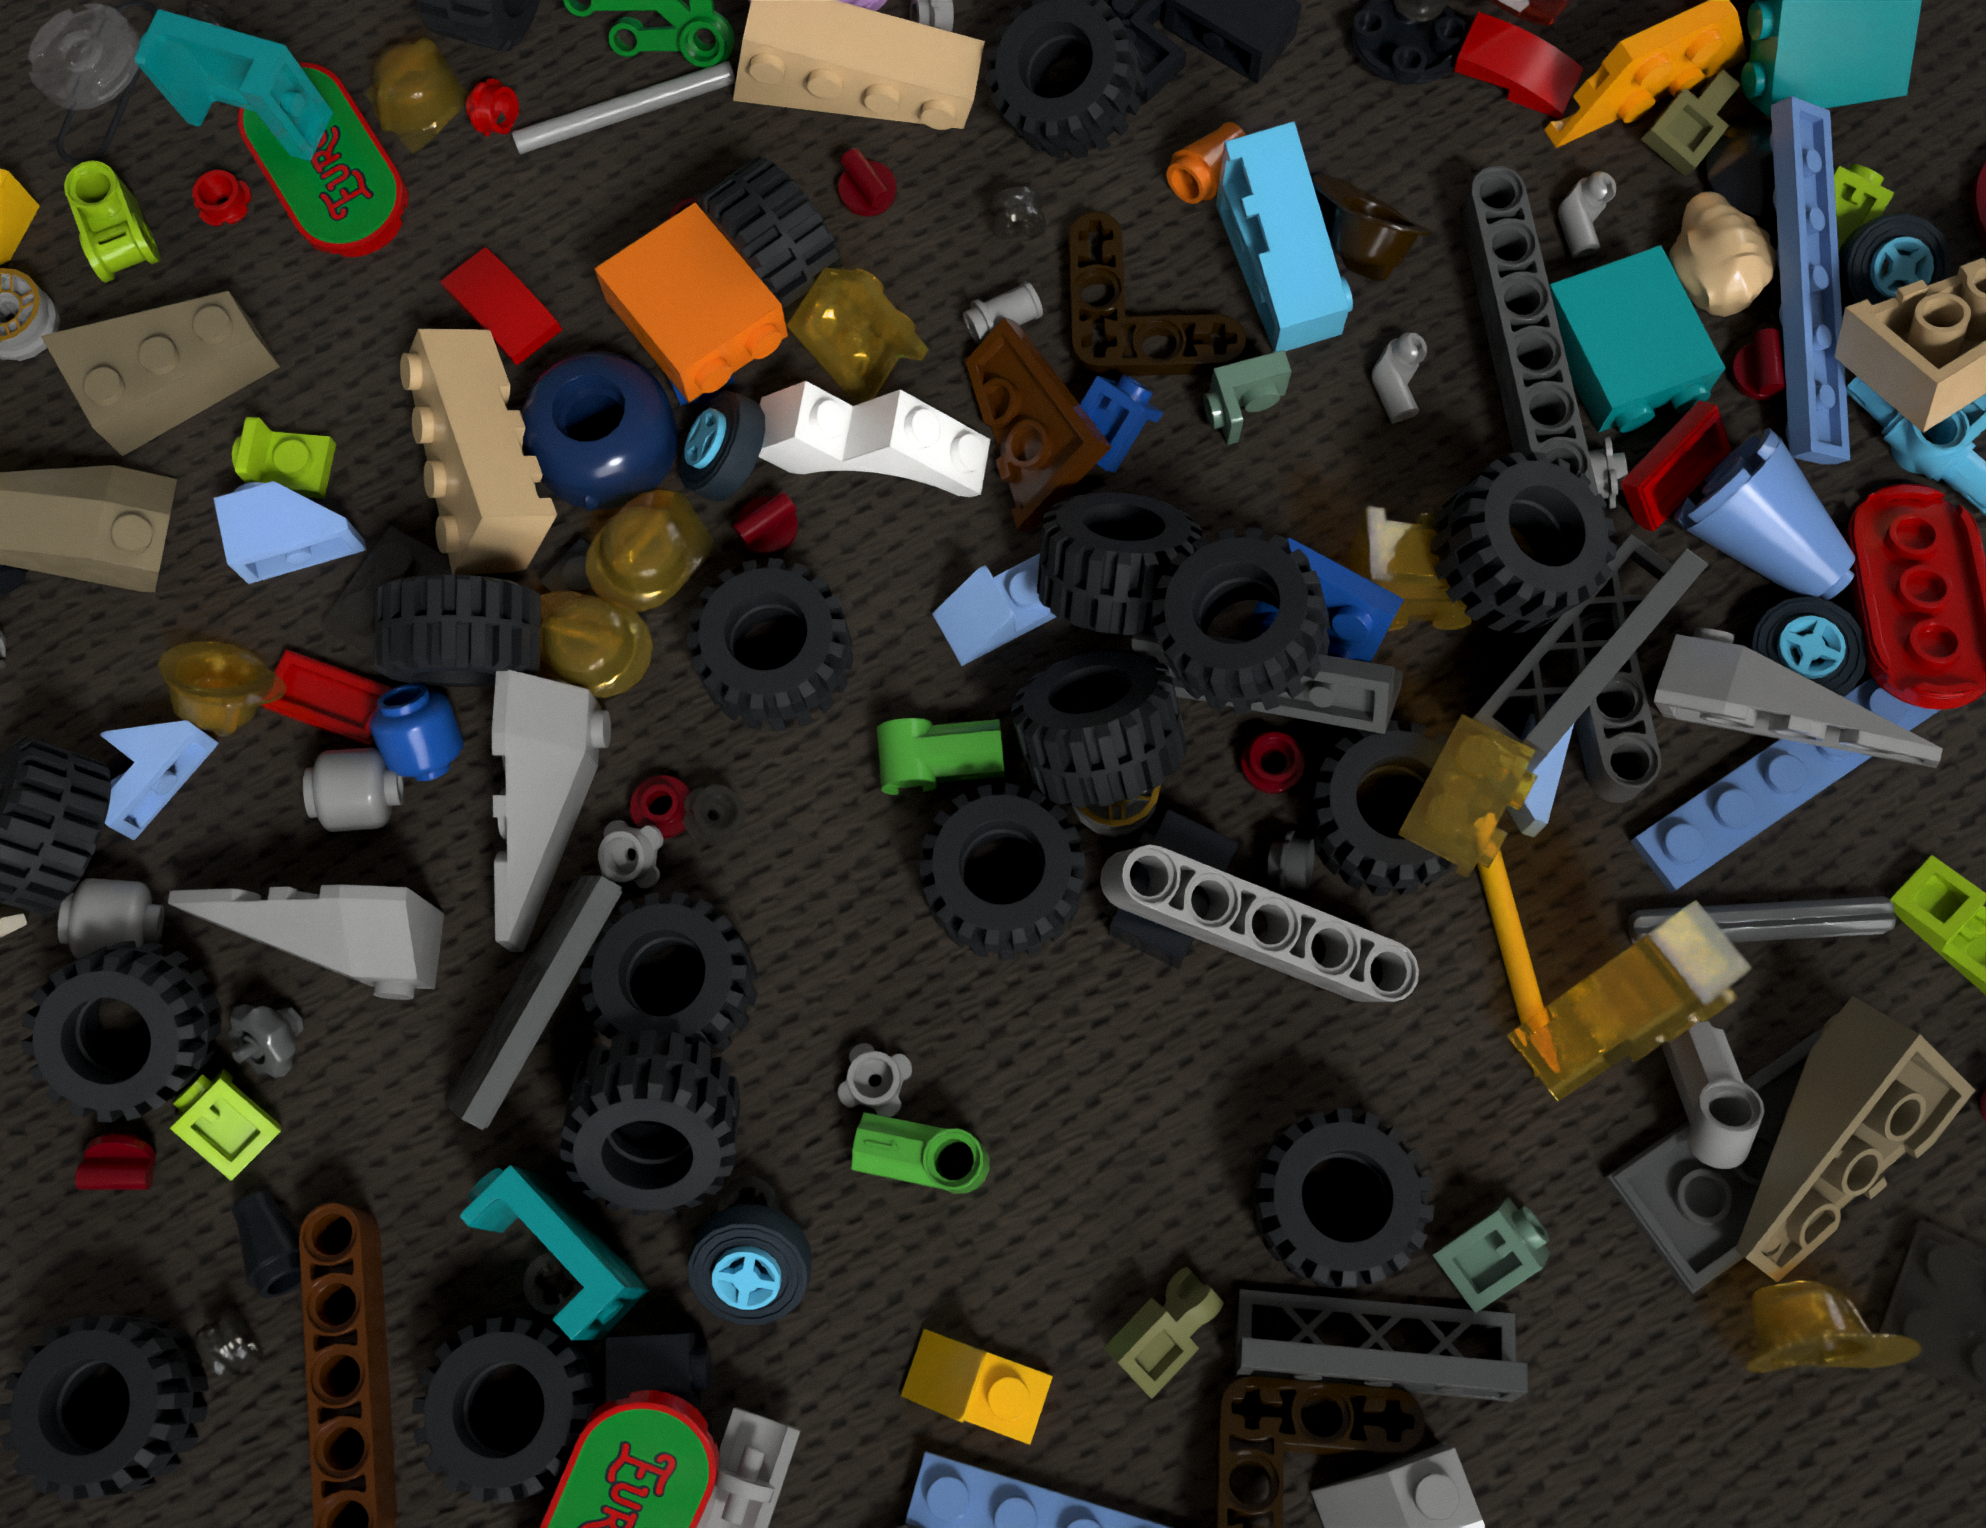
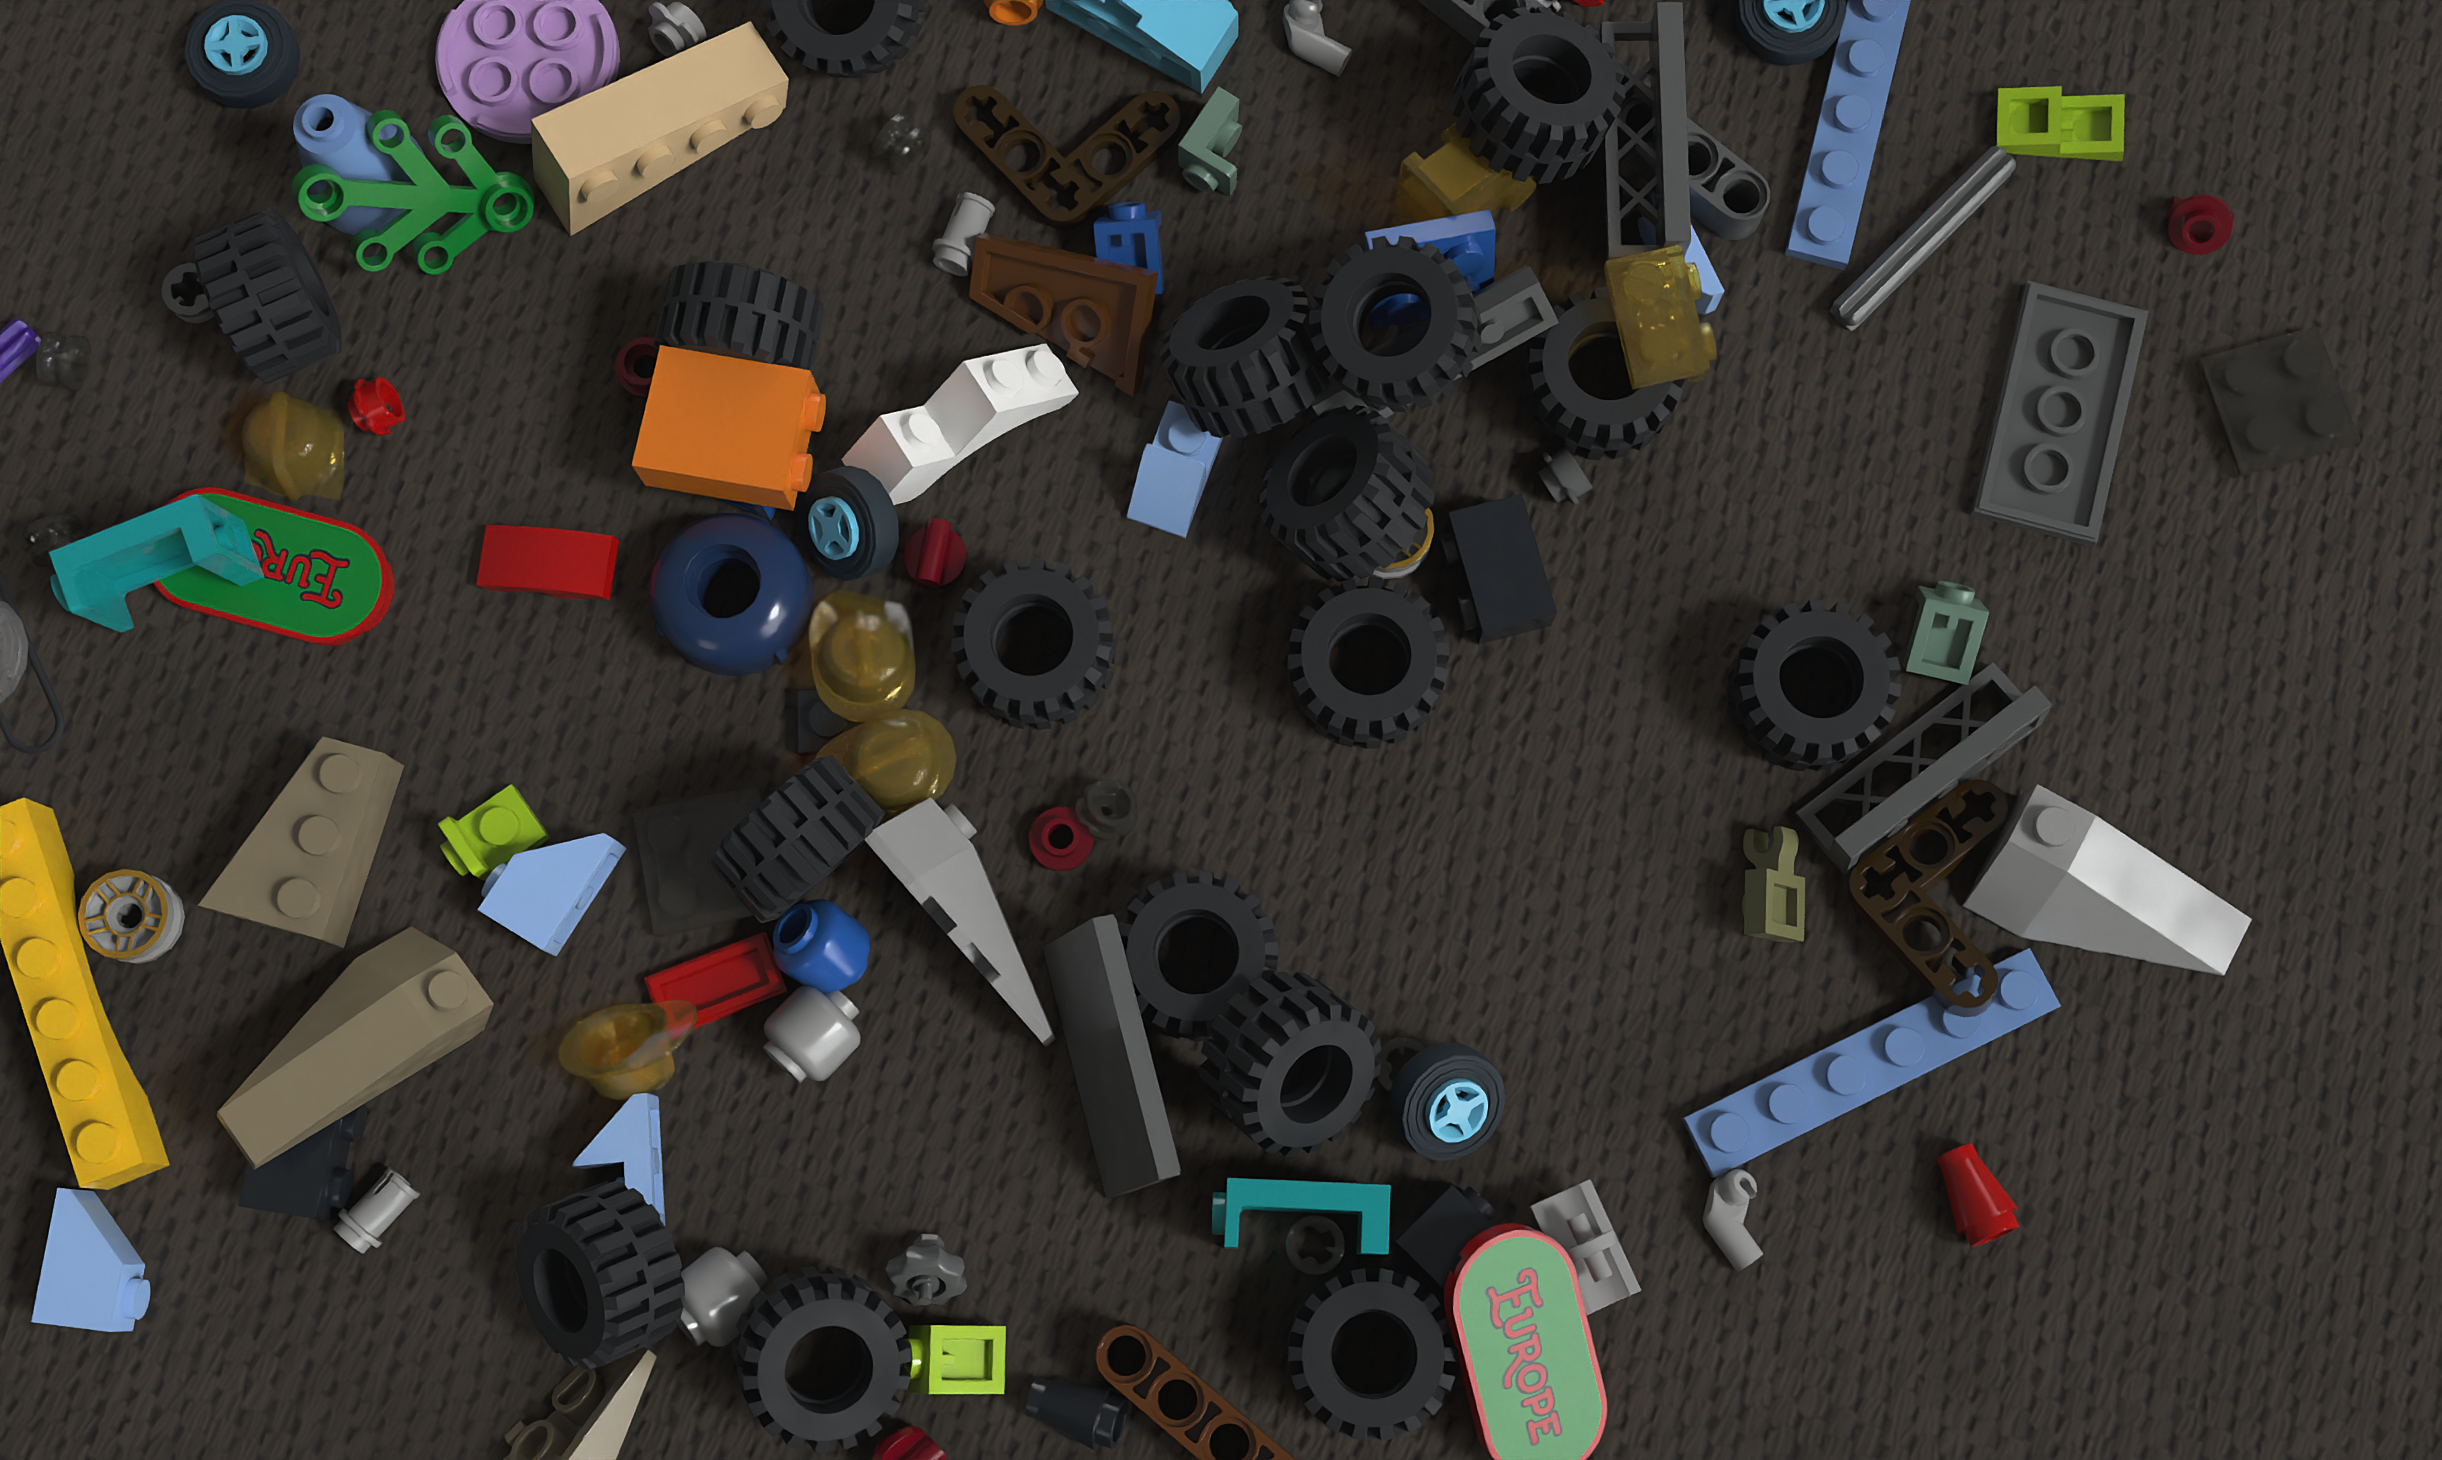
camera: 45 degrees left, 5 degrees up
(108, 220) = (149, 771): lime piece -> none
(212, 188) = (204, 659): red plate -> none
(359, 931) = (931, 1133): light grey wedge -> none
(474, 453) = (655, 692): tan wedge -> none
(614, 858) = (1070, 912): light grey plate -> none
(623, 107) = (485, 315): light grey bar -> none
(855, 331) = (870, 344): clear yellow bracket -> none
(865, 185) = (754, 218): dark red plate -> none
(868, 1062) = (1413, 879): light grey plate -> none
(914, 1153) = (1486, 921): bright green piece -> none
(925, 754) = (1228, 625): bright green piece -> none
(976, 1386) = (1676, 1042): yellow slope -> none
(1280, 744) = (1483, 394): dark red plate -> none
(1289, 922) = (1572, 556): light grey beam -> none
(1511, 939) = (1792, 418): yellow bar -> none
(1633, 1002) = (1894, 371): clear yellow wedge -> none
(1713, 1094) = (1996, 389): light grey piece -> none
(1743, 691) = (1780, 73): light grey wedge -> none
(1818, 1327) = (2196, 492): clear yellow piece -> none
(1856, 1110) = (2099, 310): dark tan wedge -> none

